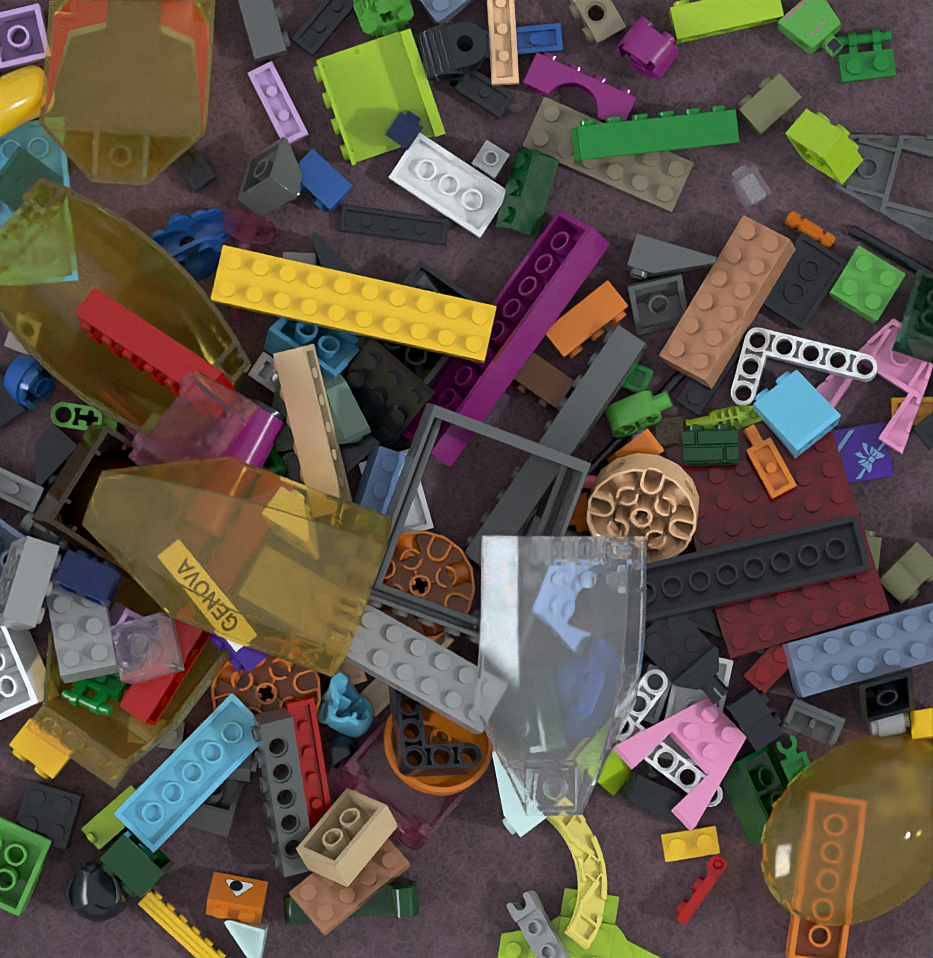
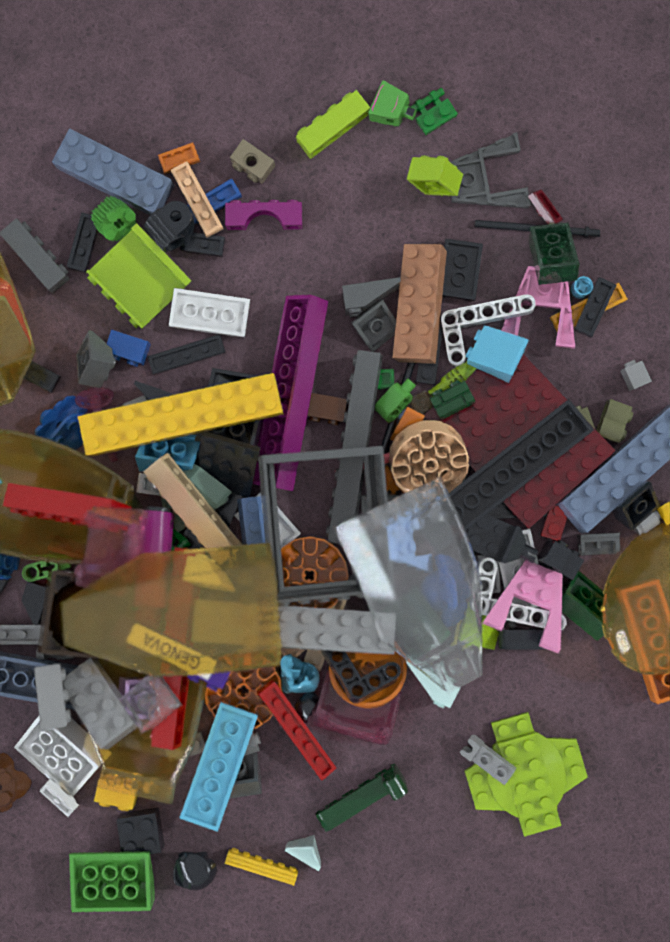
camera: 20 degrees left, 0 degrees up
(88, 578) = (88, 675): clear blue brick -> none
(104, 687) = (136, 738): green plate -> none
(106, 824) = (178, 827): lime brick -> none
(135, 864) = (208, 846): dark green brick -> none
(236, 898) = (286, 830): orange brick -> none
(267, 728) = (313, 784): dark grey brick -> none
(277, 103) = (77, 311): lavender plate -> none
(331, 903) = (352, 784): nougat plate -> none
(347, 837) = (338, 760): tan brick -> none
(404, 128) = (163, 290): clear blue brick -> none
(490, 160) = (228, 284): light grey brick -> none
(527, 193) = (260, 294): dark green brick -> none
(586, 320) = (336, 357): orange brick -> none
(590, 876) = (507, 712): light yellow tile -> none
(648, 49) = (294, 168): magenta brick -> none
(648, 176) = (300, 247): dark tan plate -> none
(654, 134) = (324, 219): green brick -> none
(690, 844) = (553, 661): yellow plate -> none
(702, 886) = (578, 682): red hinge -> none
(749, 186) = (399, 225): clear brick -> none
(768, 104) = (386, 169): olive brick -> none
(768, 463) = (494, 393): orange plate -> none
(793, 761) = (598, 575): green plate -> none
(810, 229) = (436, 234): orange axle -> none
(863, 454) = (549, 359): dark purple tile -> none
(866, 284) = (501, 252): bright green brick -> none

